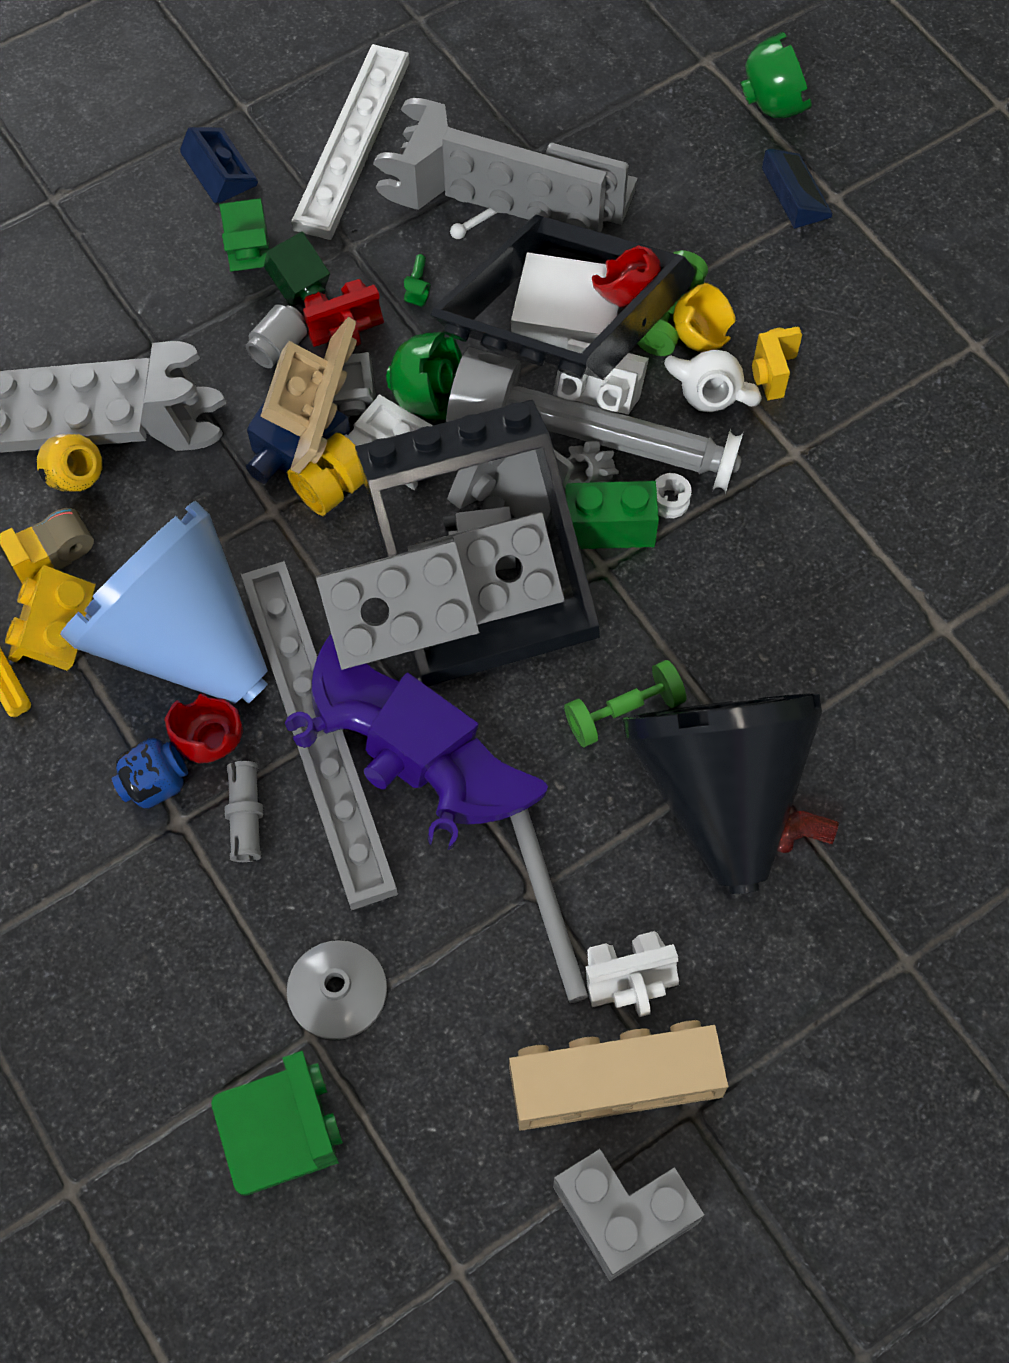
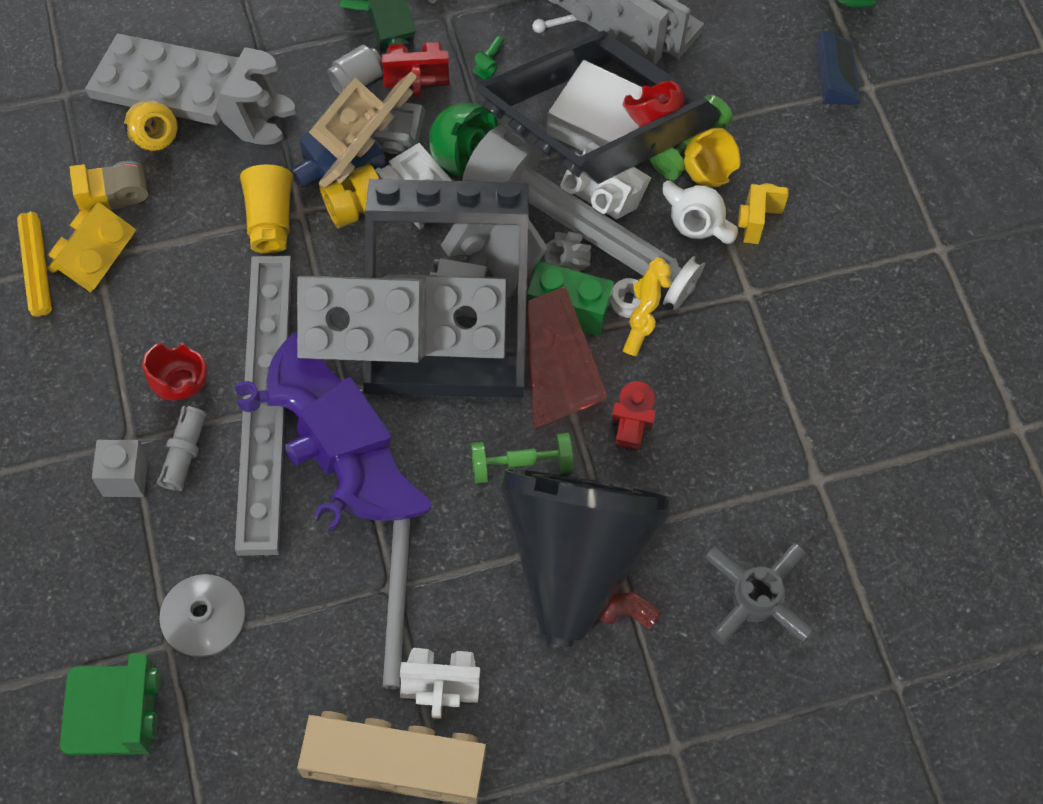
camera: 15 degrees right, 0 degrees up
(149, 773) = (119, 394): blue head -> none
(176, 614) = (181, 271): light blue cone -> none
(183, 855) = (120, 468): none -> light grey brick
(237, 514) = (267, 206): none -> yellow plant
(628, 584) = (559, 360): none -> clear red wing
(696, 482) = (649, 293): none -> yellow animal
(730, 619) = (633, 414): none -> red hips
(941, 753) = (770, 583): none -> dark grey bar

